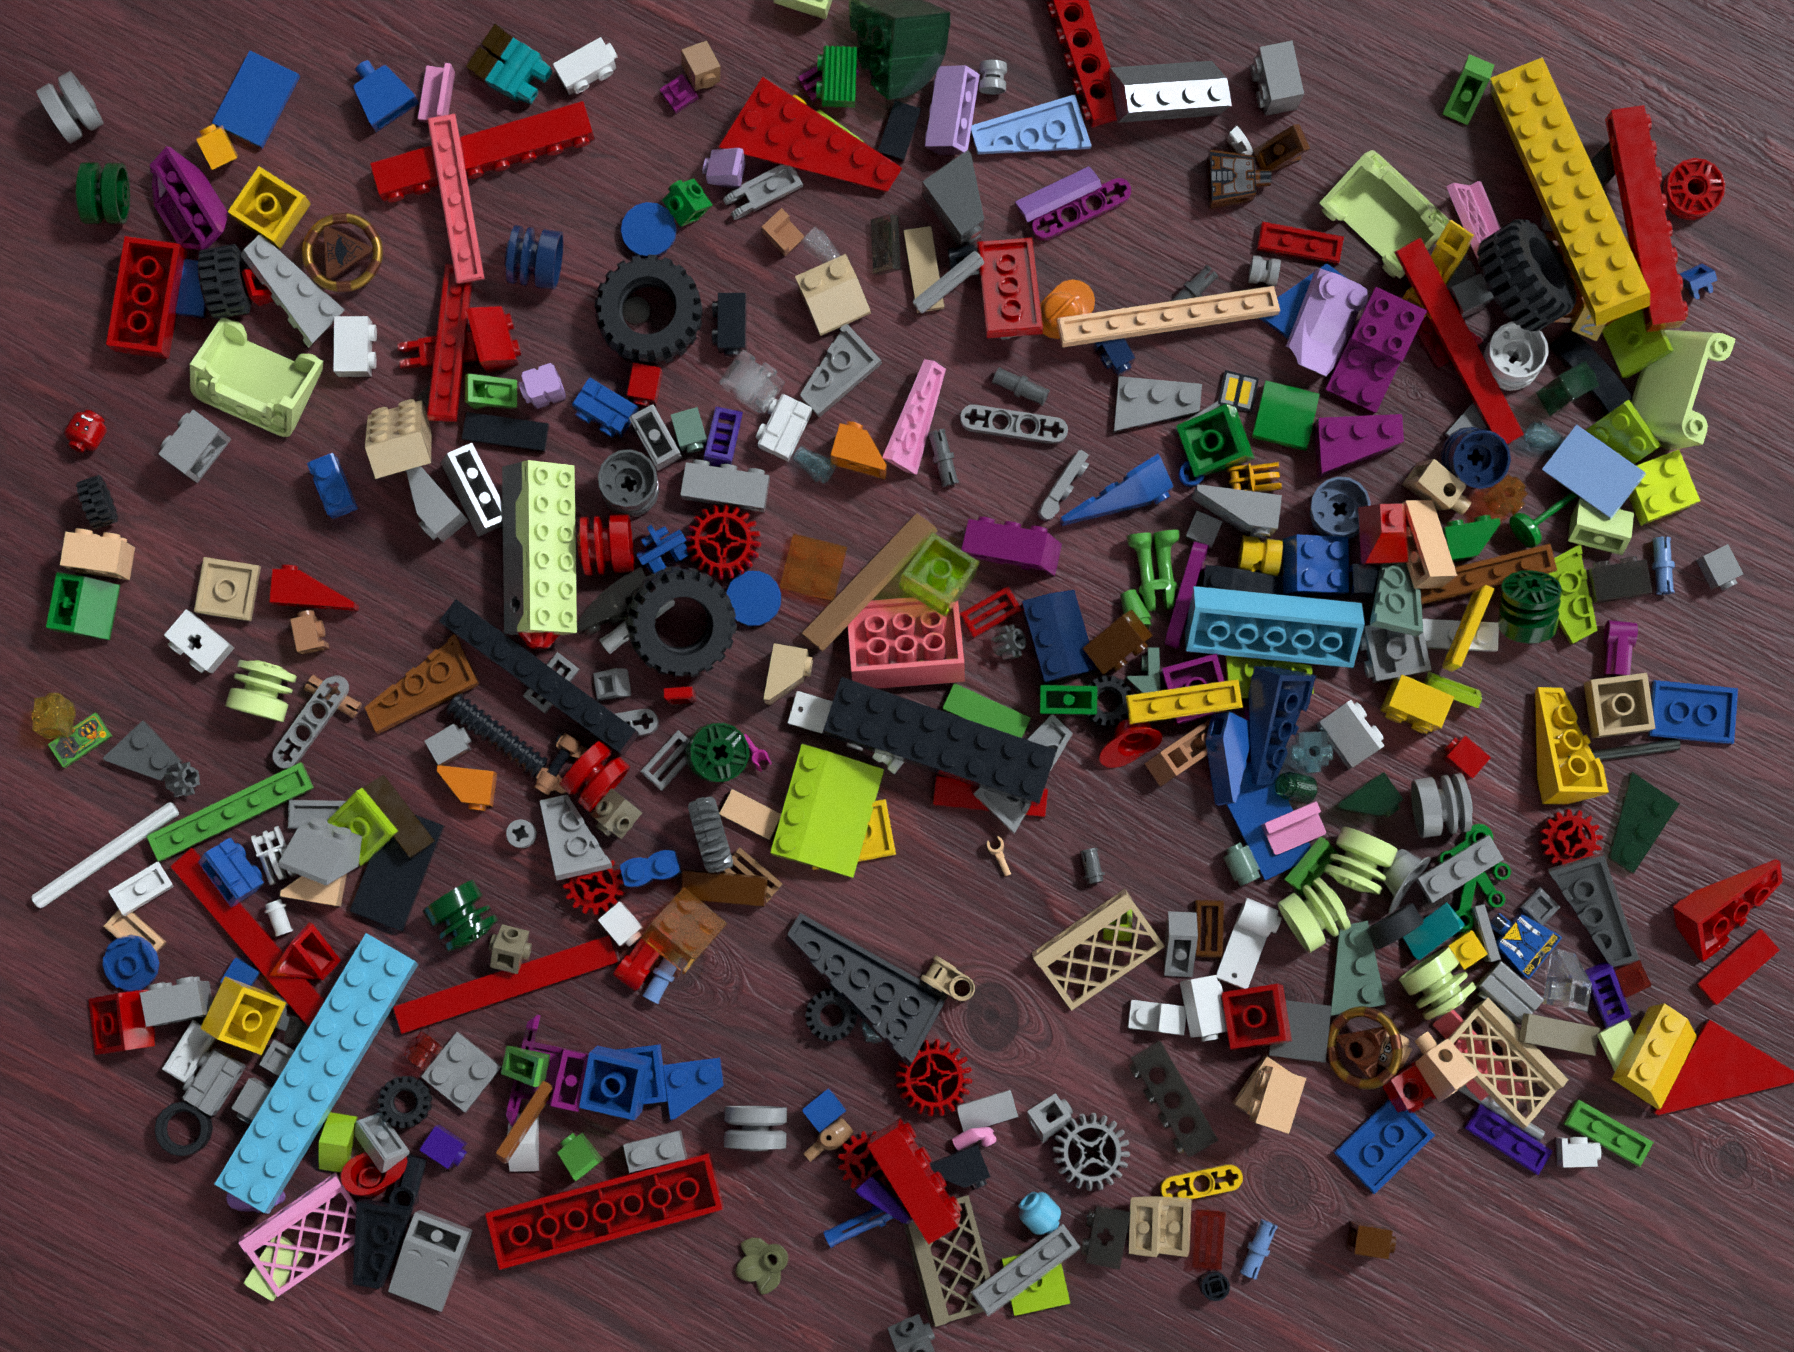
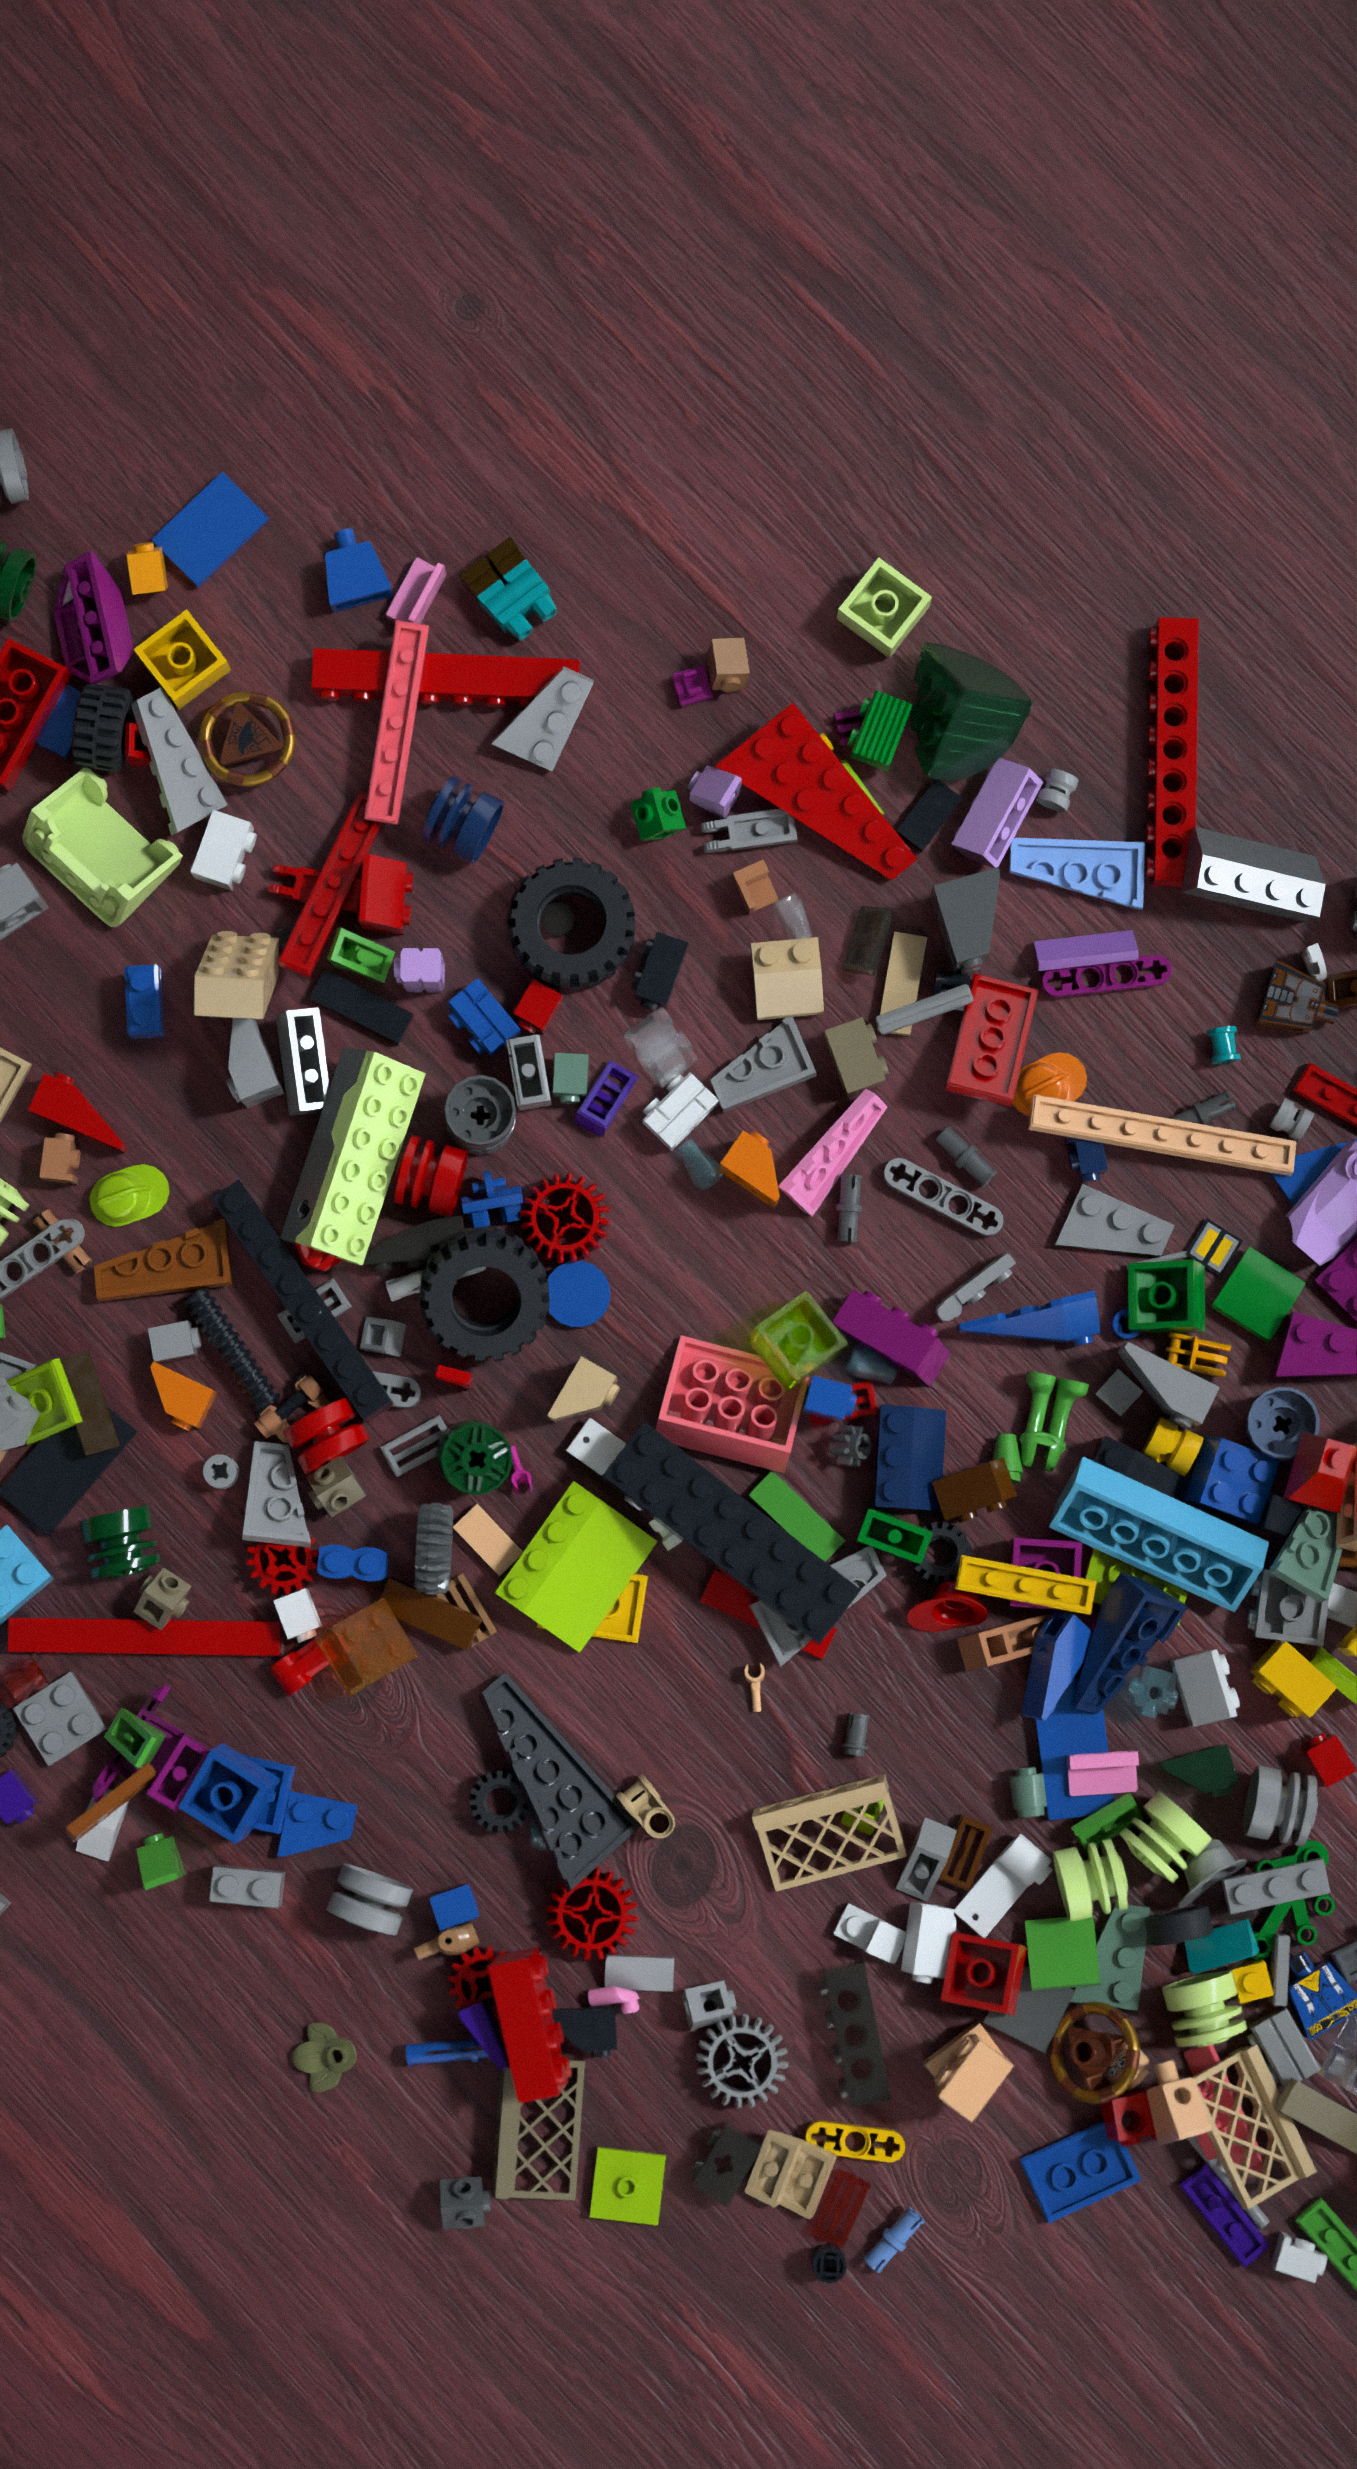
camera: 20 degrees right, 0 degrees up
(373, 642) = (129, 1195): none -> lime piece
(574, 158) = (546, 722): none -> light grey wing
(586, 65) = (597, 619): white brick -> none
(604, 1210) = (166, 1934): red brick -> none
(648, 229) = (603, 831): blue tile -> none
(660, 981) = (319, 1694): medium blue pin -> none
(725, 485) = (589, 1154): light grey brick -> none
(813, 567) = (657, 1282): clear orange plate -> none
(869, 582) = (715, 1321): medium nougat tile -> none
(907, 337) = (855, 1056): none -> dark tan brick
(980, 610) = (829, 1399): none -> blue brick
(1001, 574) = (869, 1365): none -> clear light blue cone
(1025, 1270) = (620, 2170): light grey tile -> none
(1039, 1213) = (658, 2110): medium azure head -> none
(1151, 665) = (996, 1548): sand green slope -> none
(1190, 579) = (1081, 1448): magenta beam -> none
(1191, 231) = (1223, 1045): none -> teal bush
(1296, 787) = (1121, 1726): clear green brick -> none
(1311, 980) = (1062, 1953): none -> bright green tile
(1370, 1240) = (1025, 2275): reddish brown brick -> none

